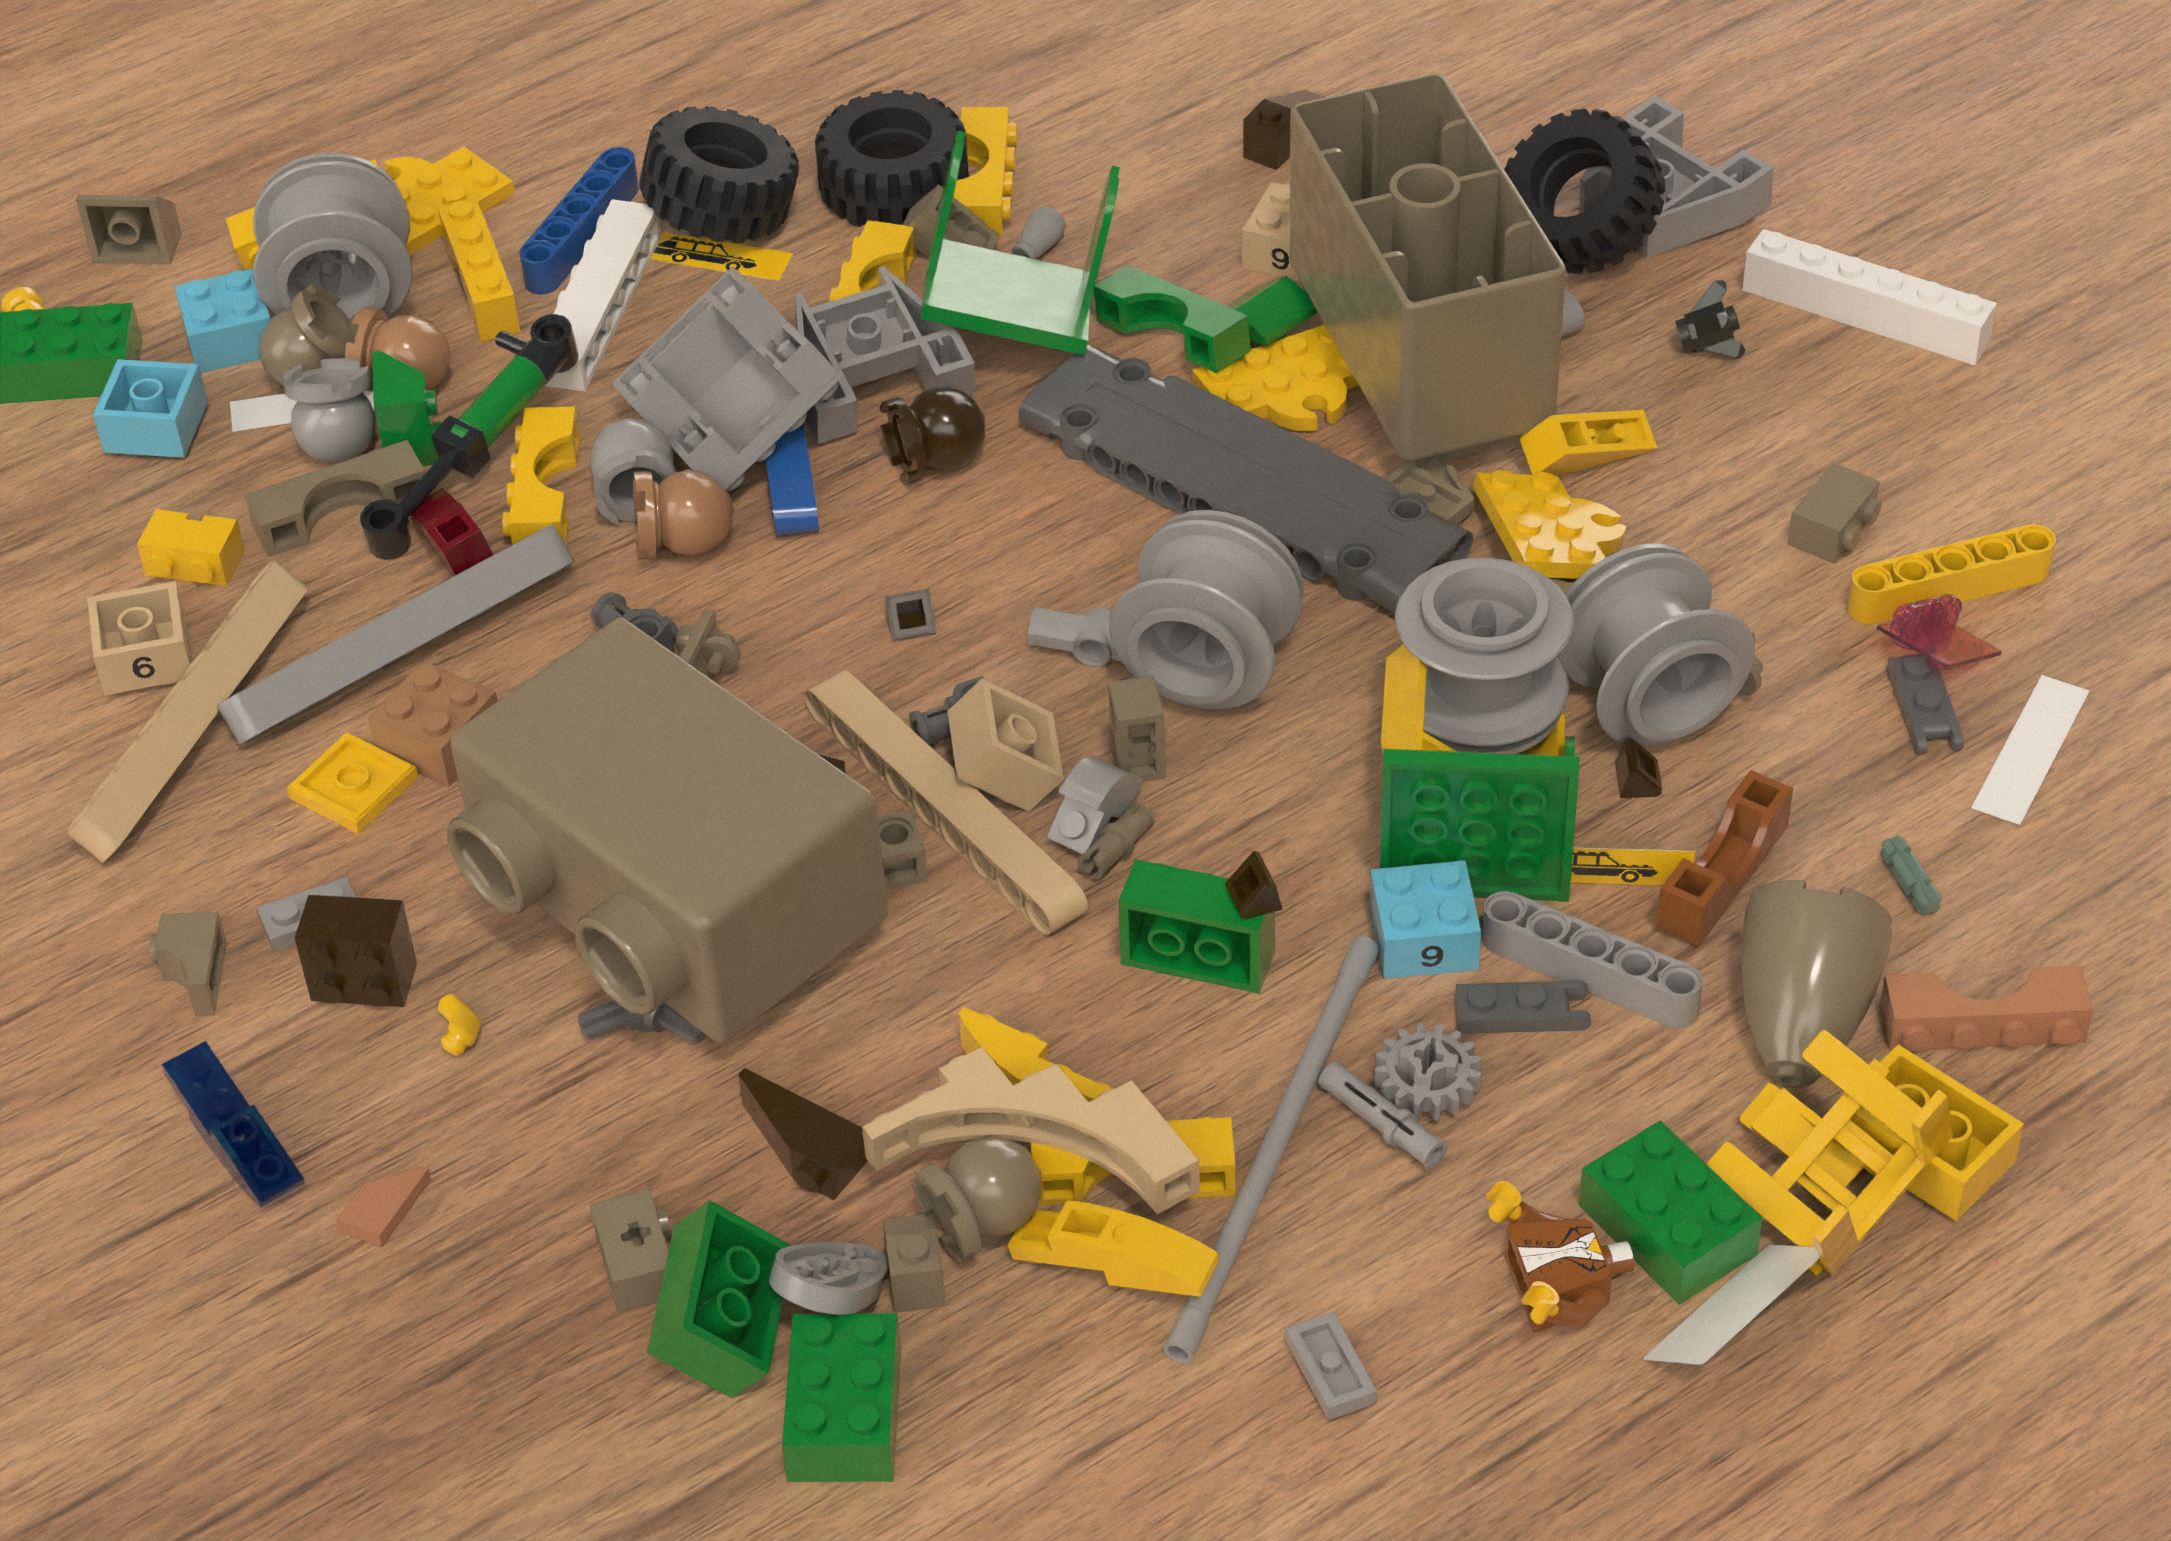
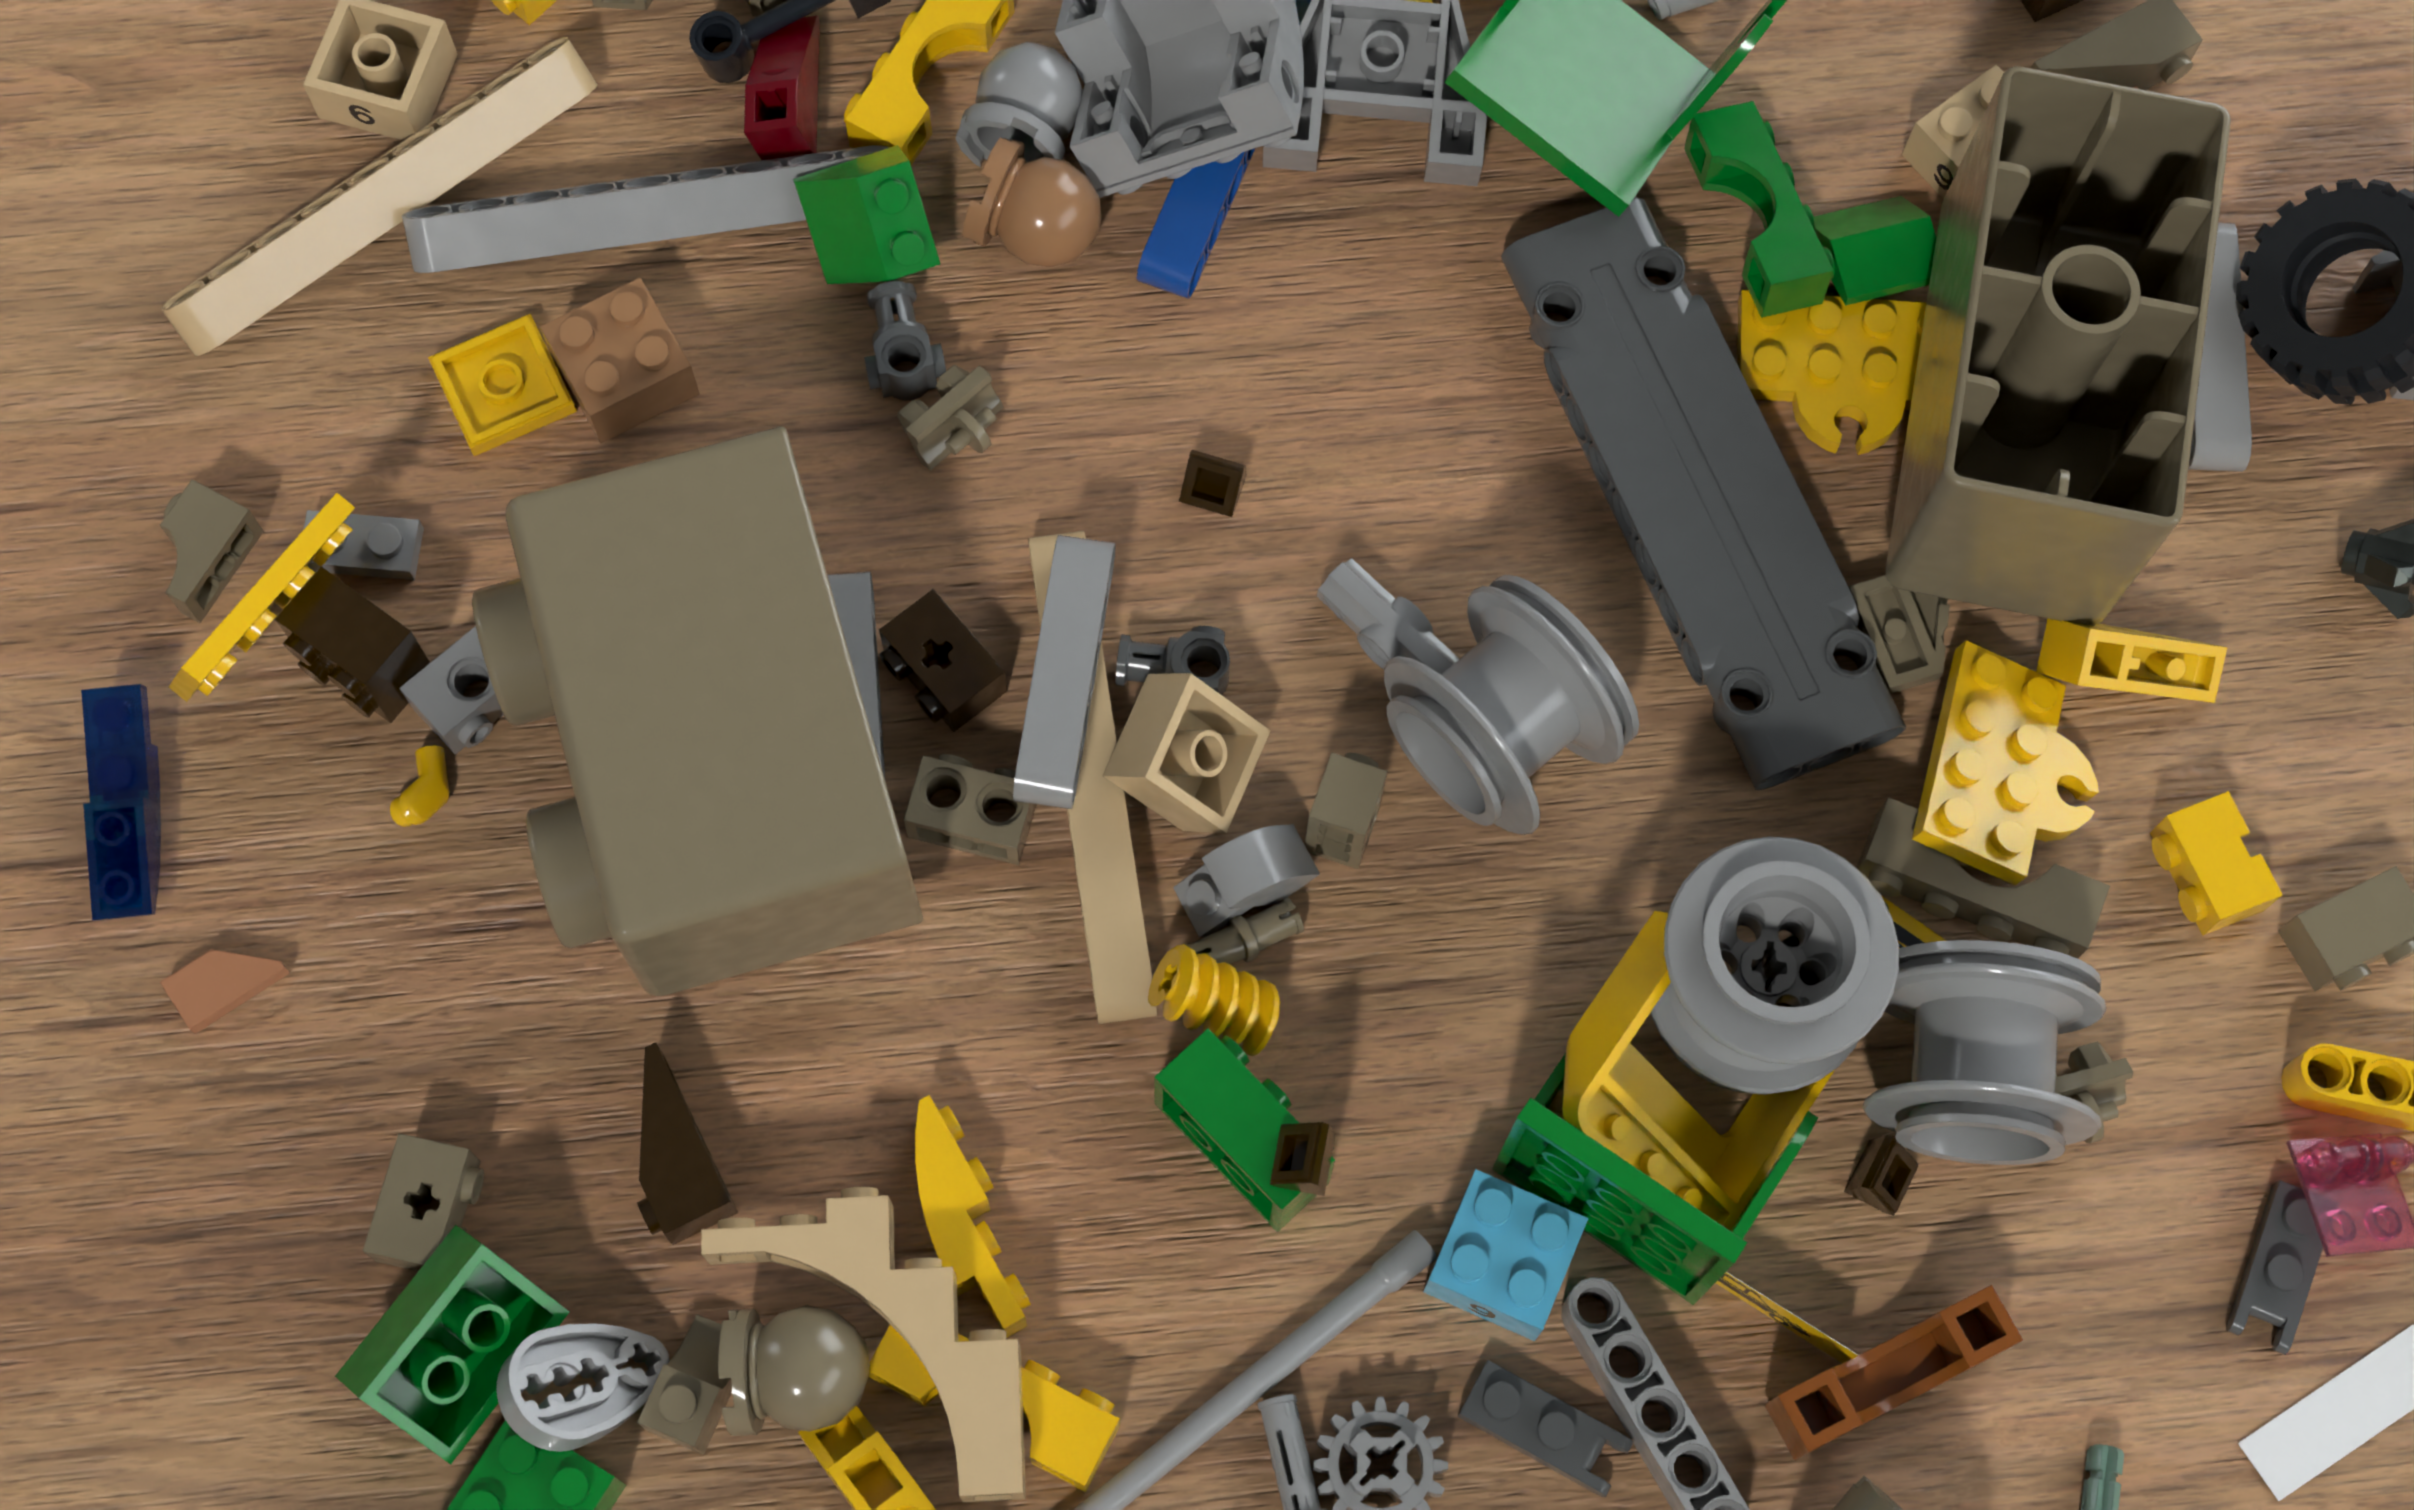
camera: 25 degrees right, 25 degrees up
(277, 936) = (253, 614): none -> yellow plate
(455, 946) = (439, 691): none -> light grey brick
(565, 566) = (867, 219): none -> green slope
(889, 734) = (1064, 672): none -> light grey beam
(936, 431) = (1388, 239): dark brown tile -> none
(1108, 859) = (1216, 997): none -> yellow piece
(1720, 520) = (2212, 864): none -> yellow brick

